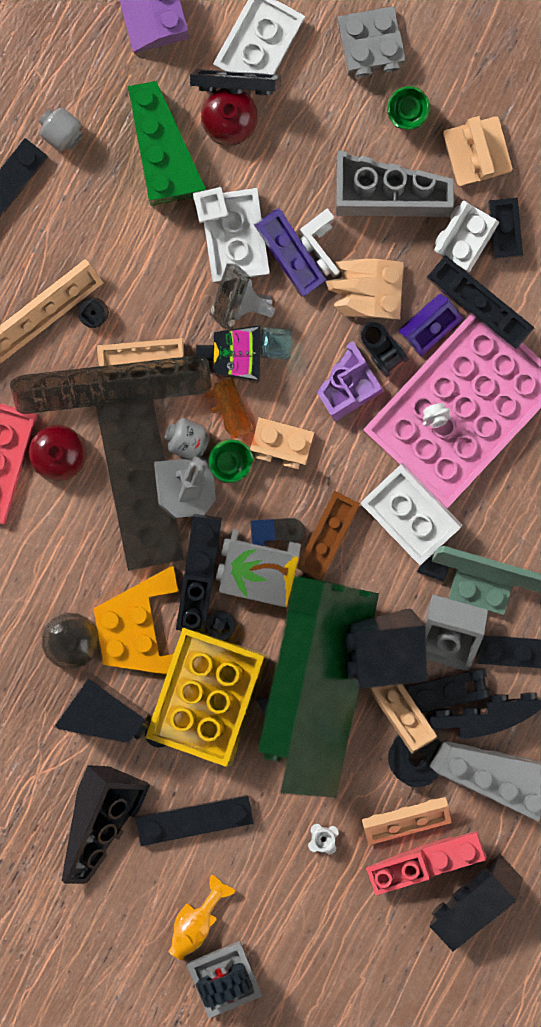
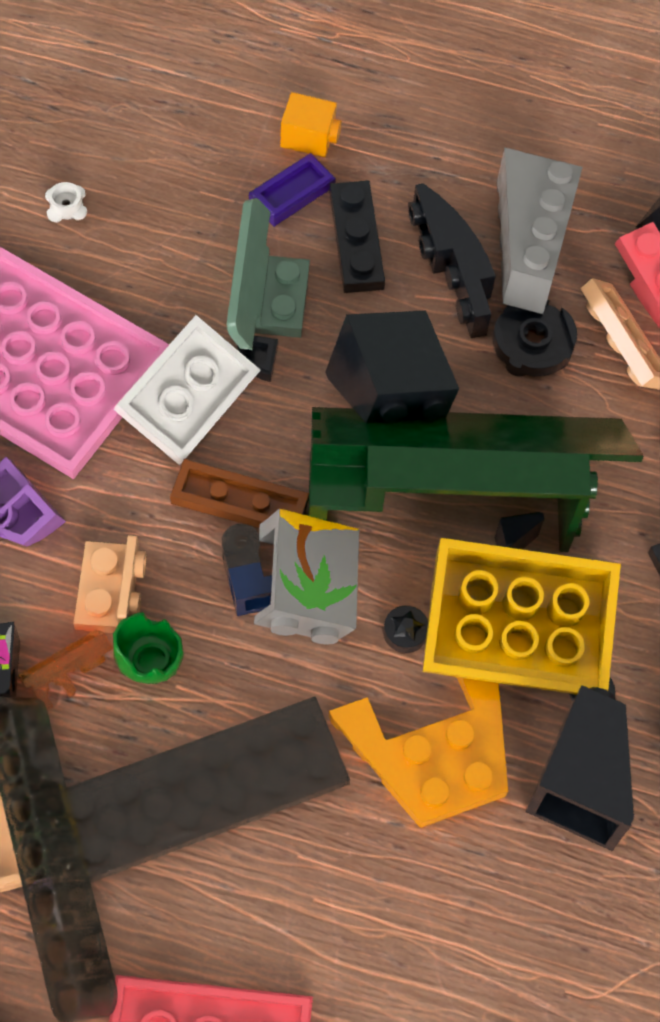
camera: 105 degrees left, 25 degrees down
(57, 453) = (177, 929): dark red cylinder -> none
(70, 640) = (482, 852): clear smoke cylinder -> none
(185, 486) = (197, 709): light grey piece -> none
(187, 439) = (123, 721): light grey head -> none
(199, 573) = (332, 671): black slope -> none
(404, 716) = (485, 348): light nougat plate -> none
(436, 415) = (36, 370): white plate -> none
(449, 690) = (433, 299): black plate -> none
(453, 632) = (332, 294): light grey slope -> none

